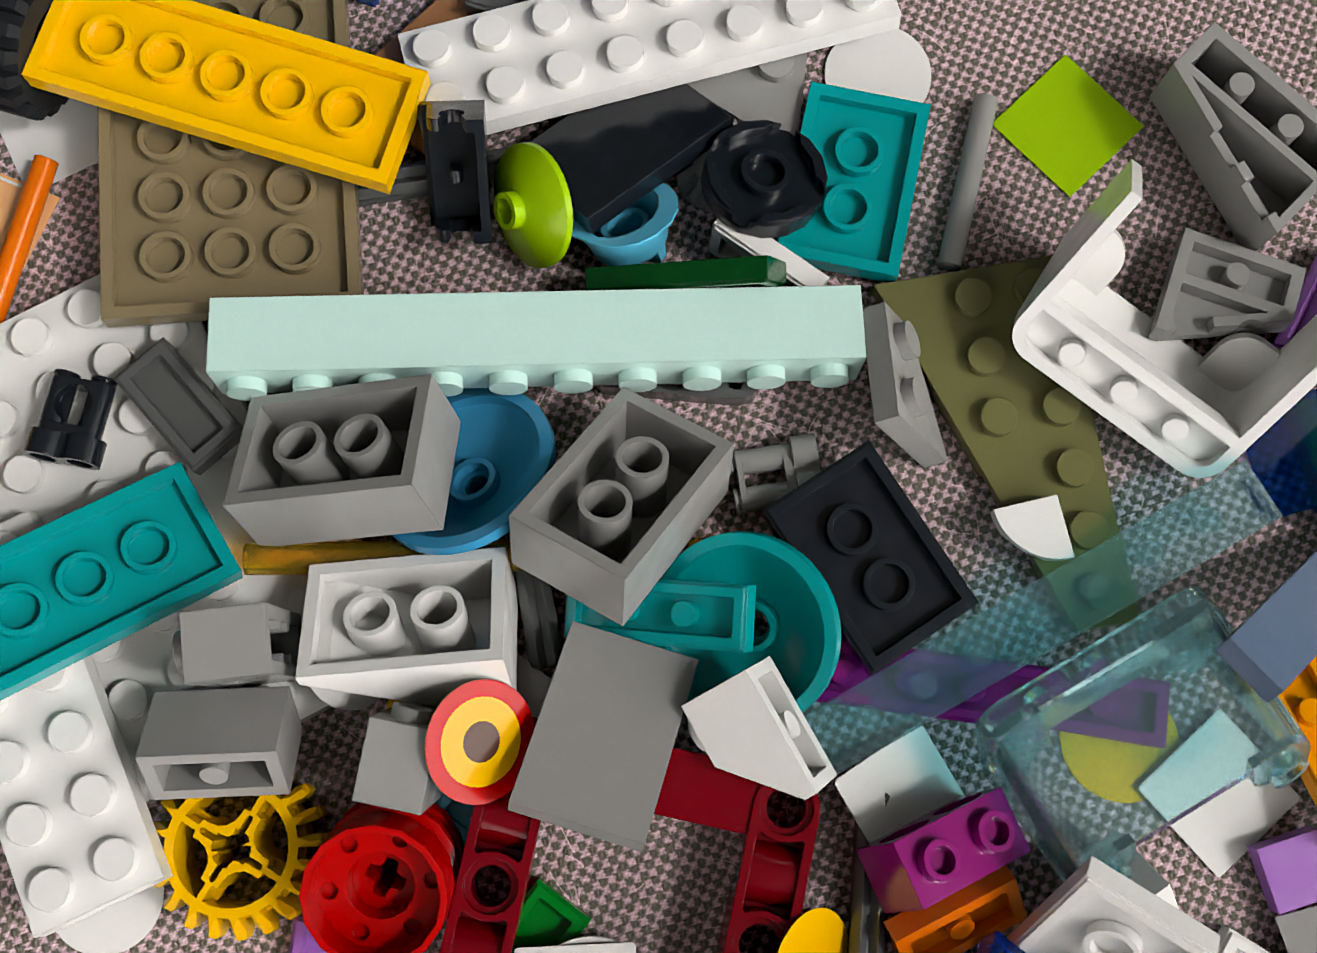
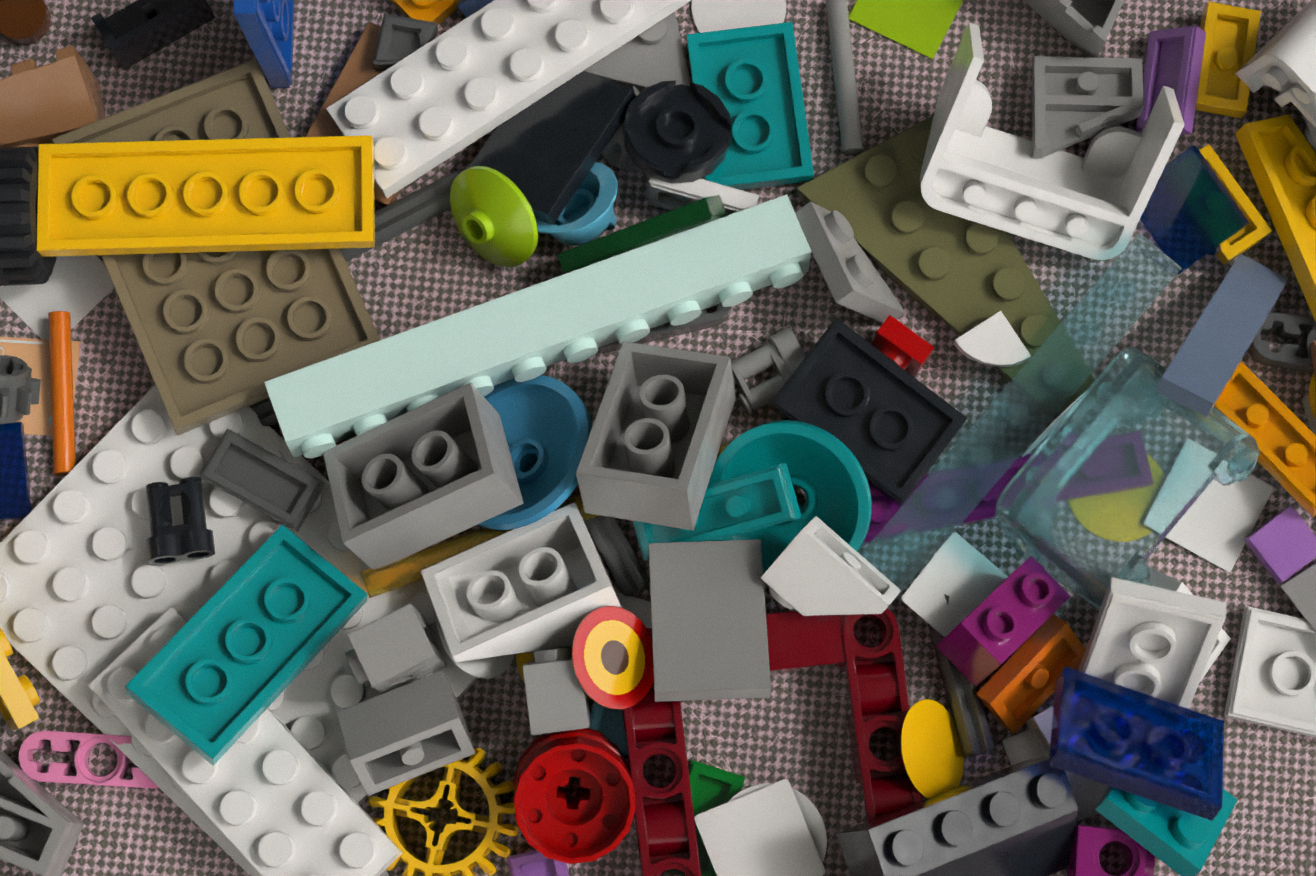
camera: 20 degrees left, 0 degrees up
(457, 168) = (421, 207): black hinge -> none
(932, 496) = (902, 346): none -> red plate
(1081, 641) = (1050, 428): none -> white sticker

